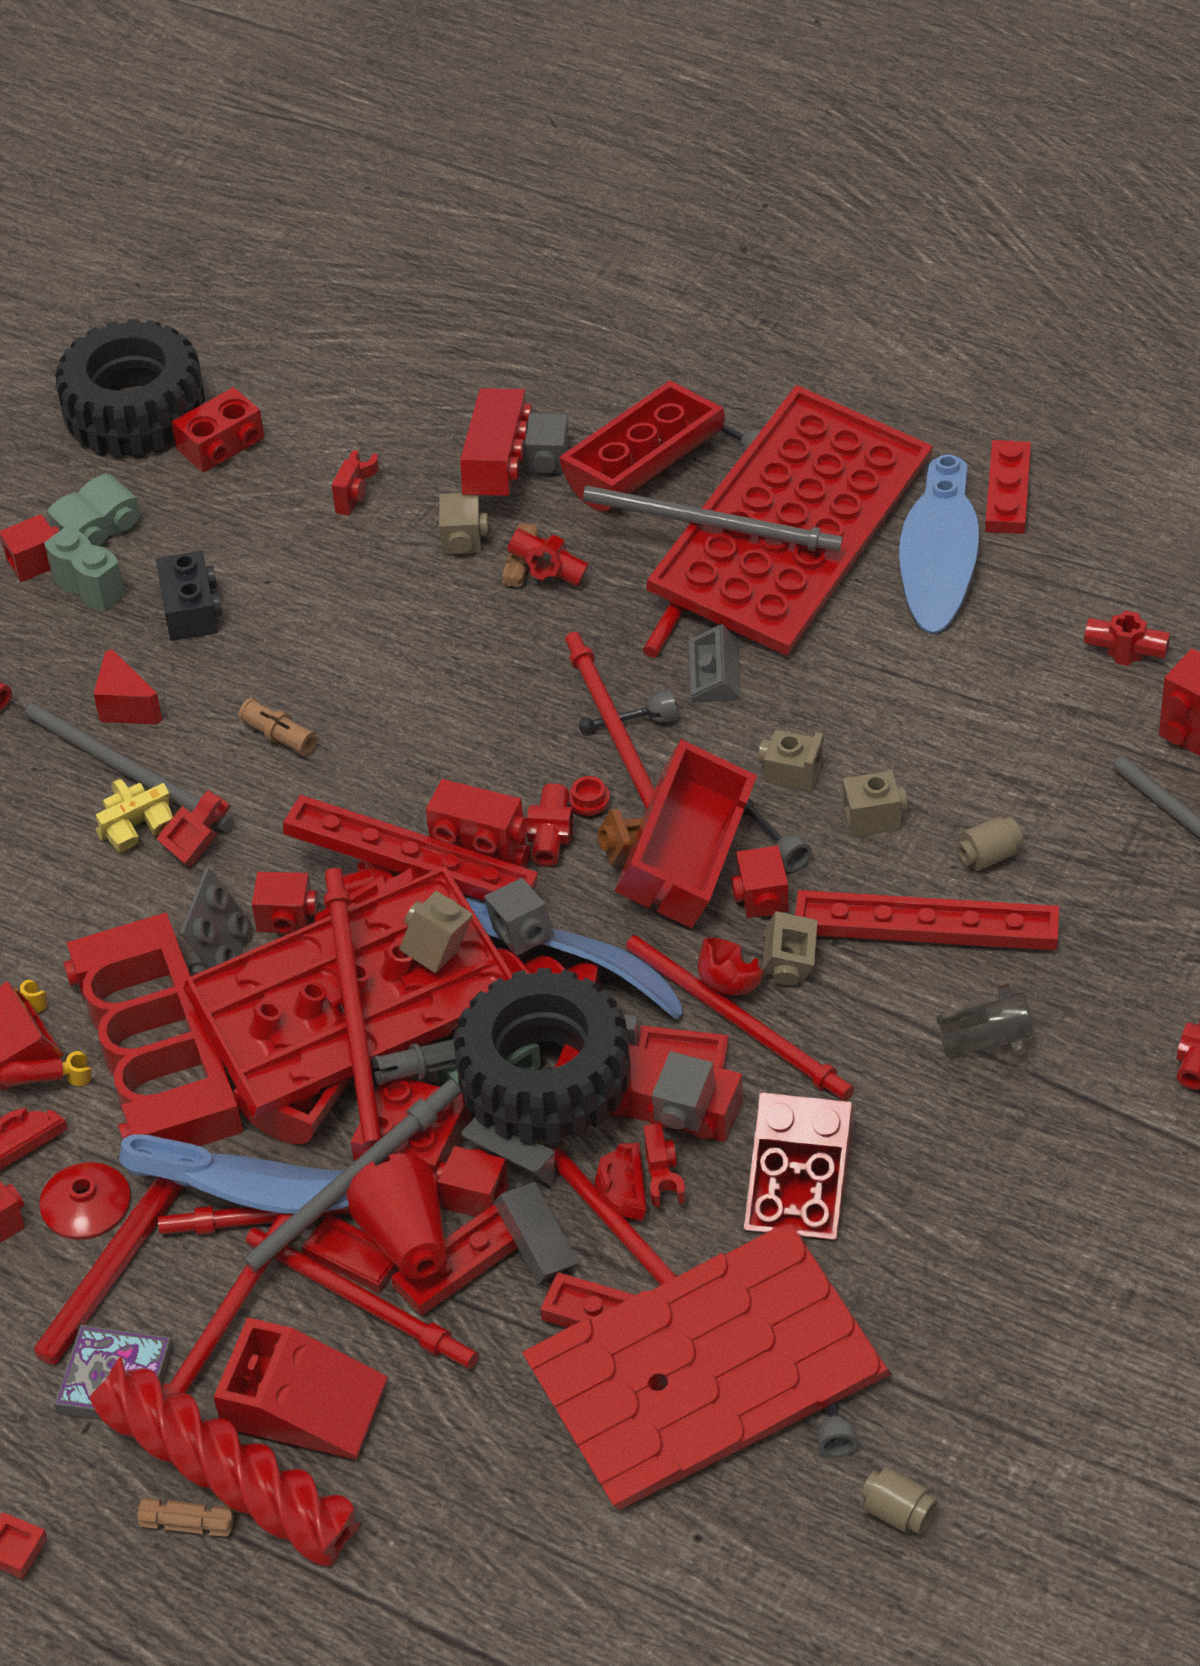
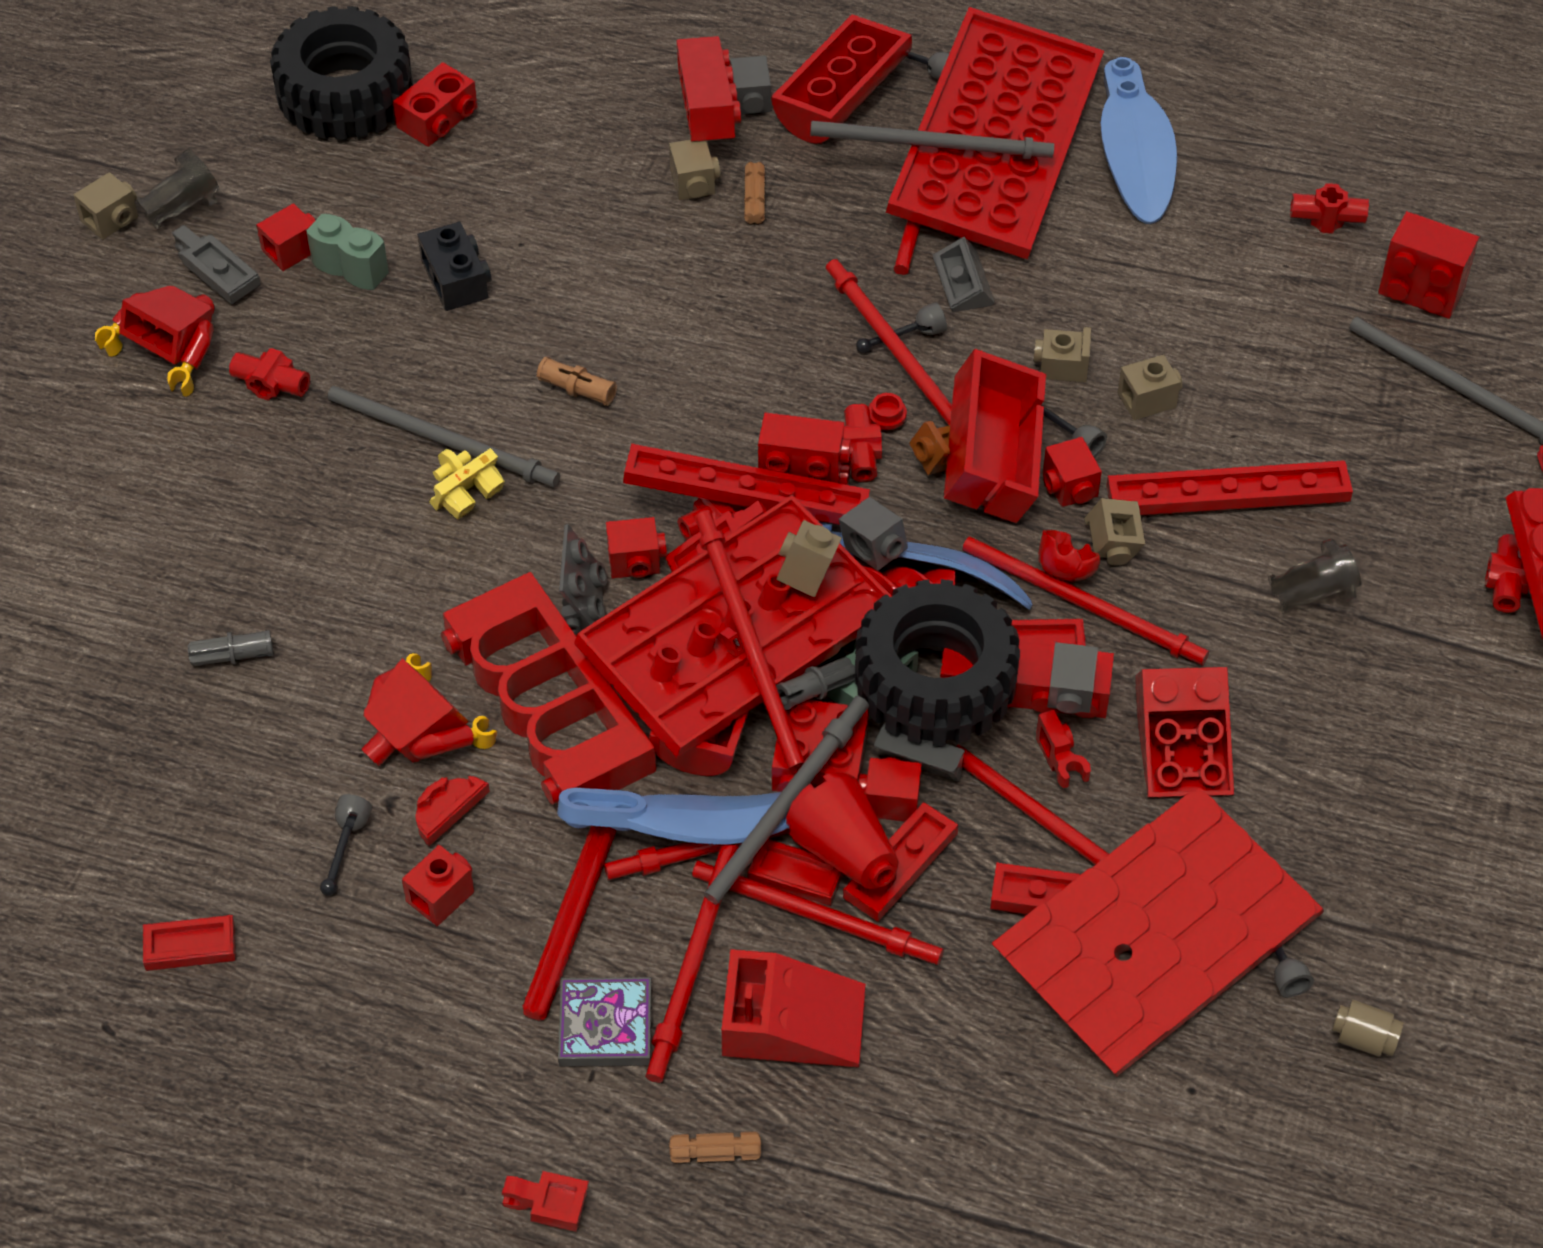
camera: 15 degrees left, 5 degrees up
(88, 1213) = (525, 872): red dish -> none
(97, 510) = (342, 191): sand green brick -> none
(124, 695) = (423, 367): red slope -> none
(189, 832) = (523, 492): red plate -> none
(212, 1457) = (735, 1086): red piece -> none
(350, 482) = (578, 140): red plate -> none
(535, 1232) = (966, 828): dark grey slope -> none
(561, 564) = (770, 185): red axle -> none
(621, 1181) = (1027, 768): red plate -> none
(989, 842) = (1265, 410): dark tan brick -> none
(1008, 487) = (1179, 81): red plate -> none

